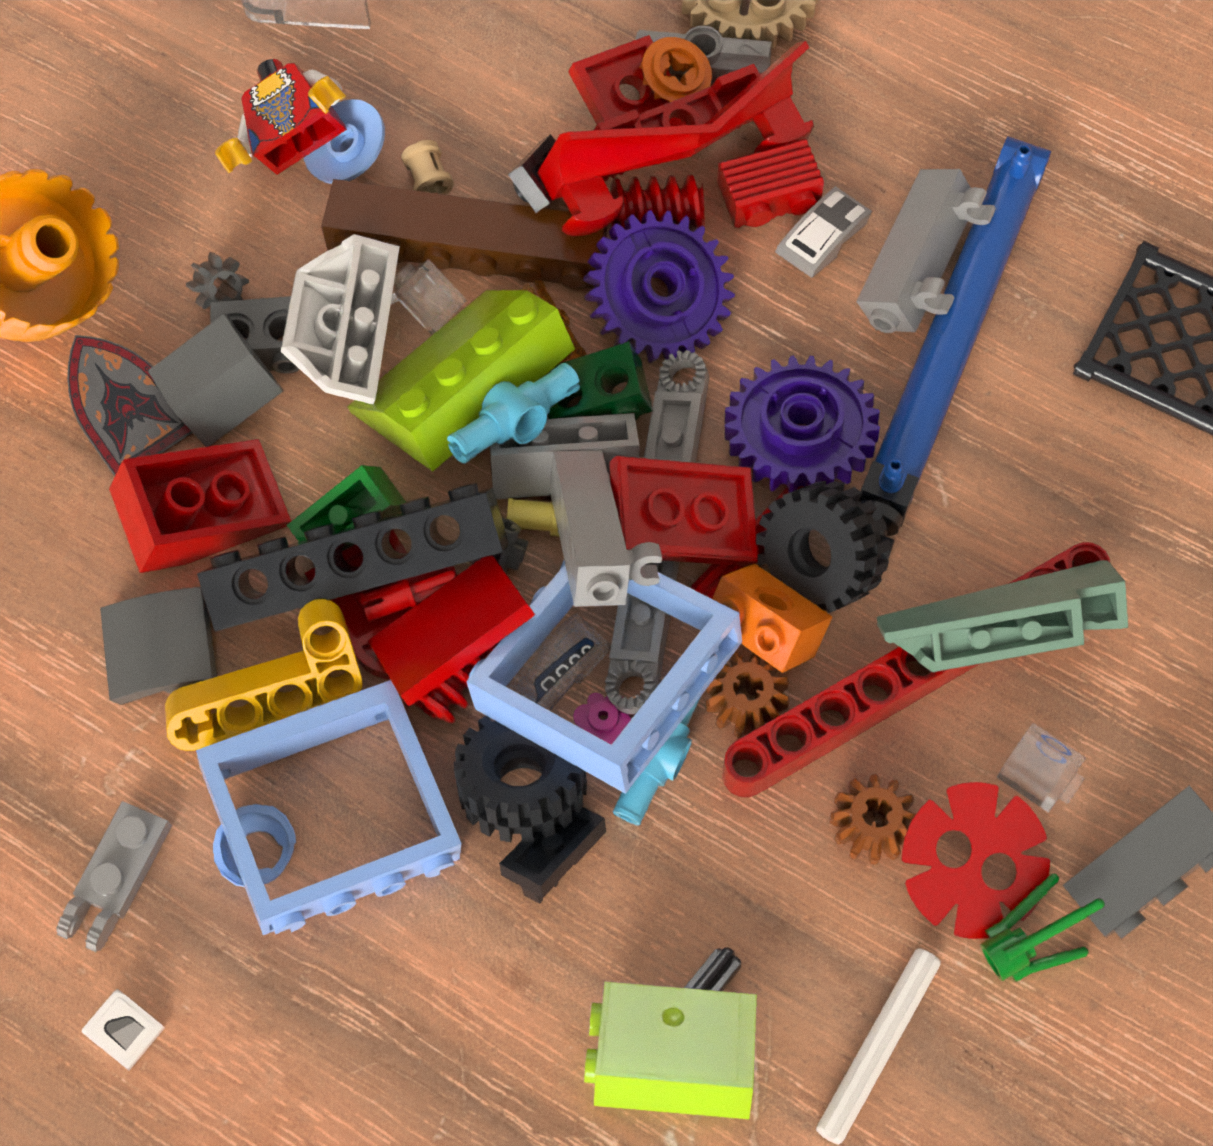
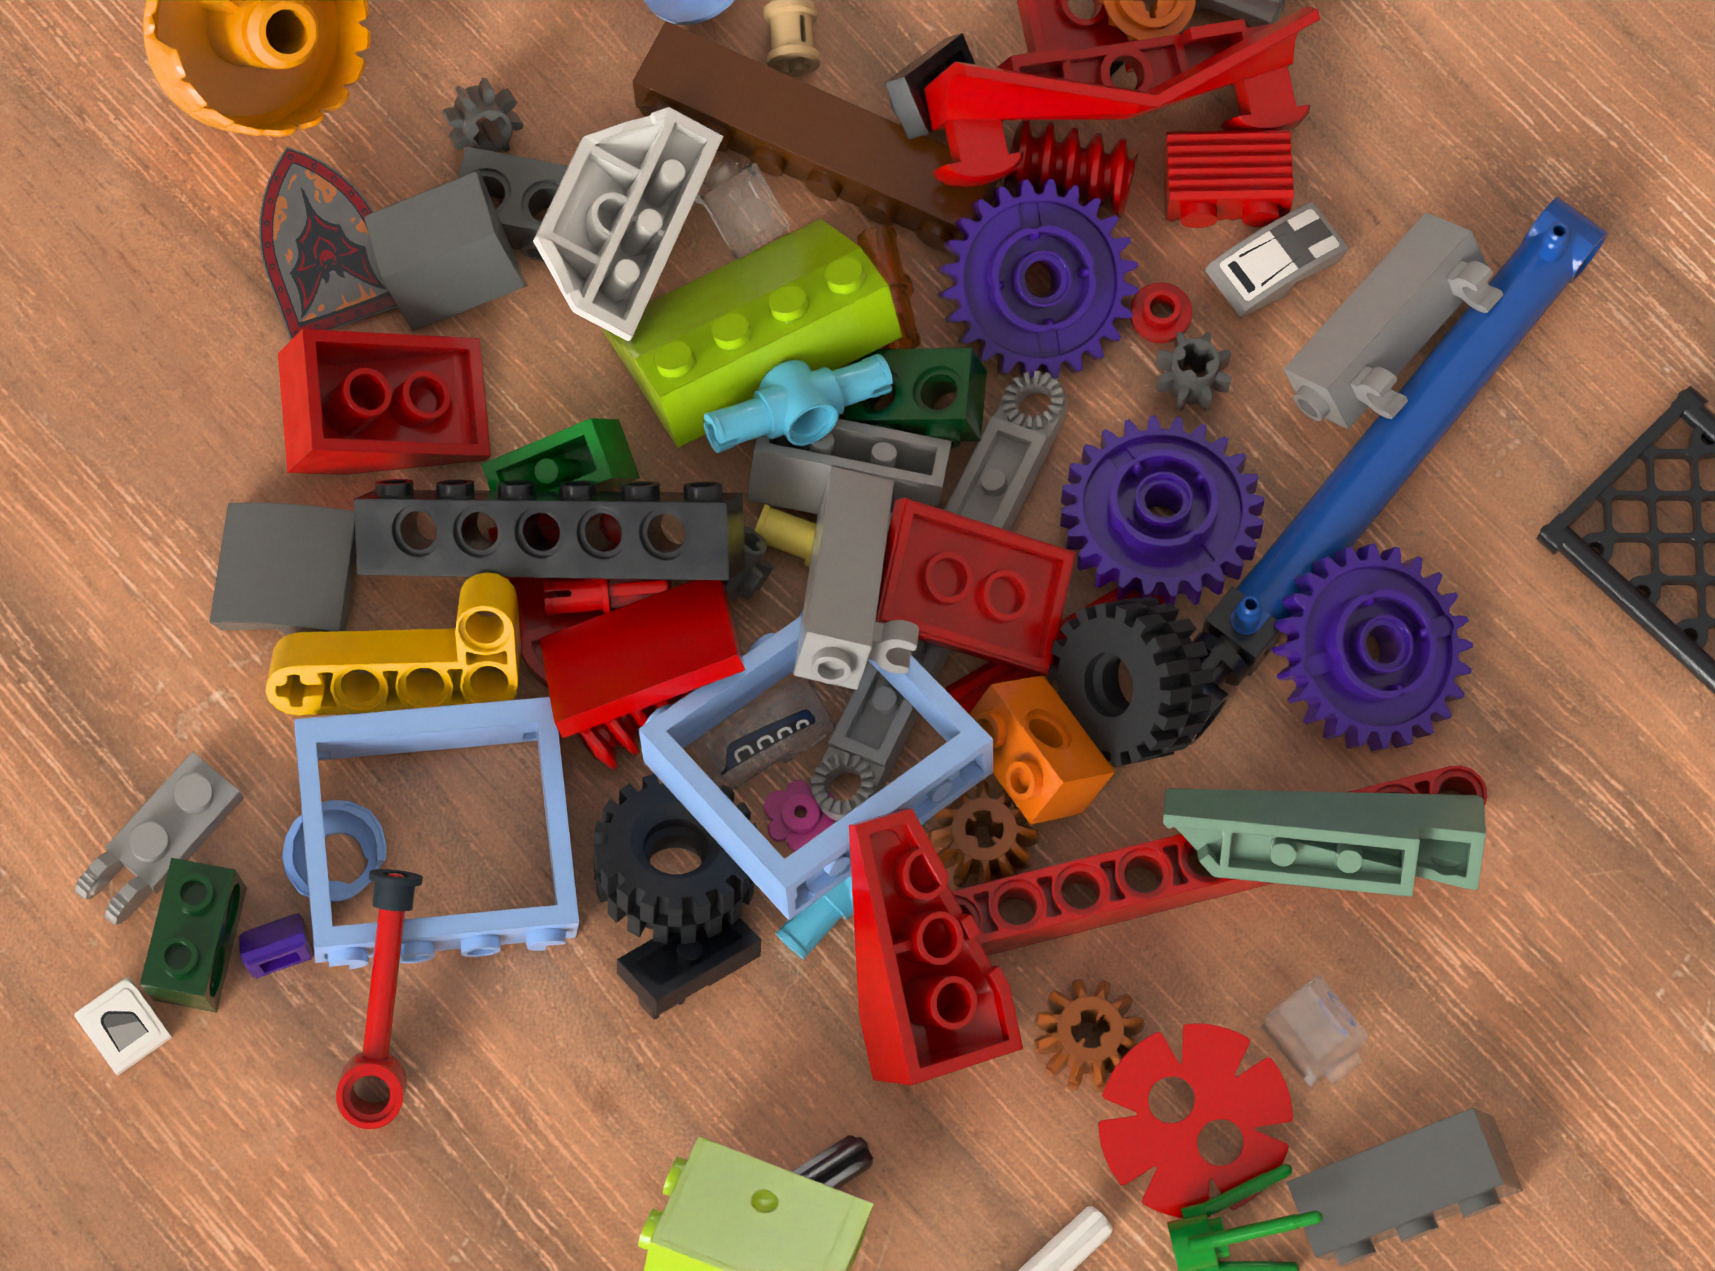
camera: 15 degrees right, 5 degrees up
(160, 941) = (193, 935): none -> dark green brick
(228, 932) = (275, 946): none -> dark purple slope
(312, 863) = (393, 897): none -> red piece
(737, 808) = (921, 973): none -> red wedge
(753, 301) = (1155, 328): none -> red plate
(790, 322) = (1201, 357): none -> dark grey gear
(995, 512) = (1330, 658): none -> dark purple gear

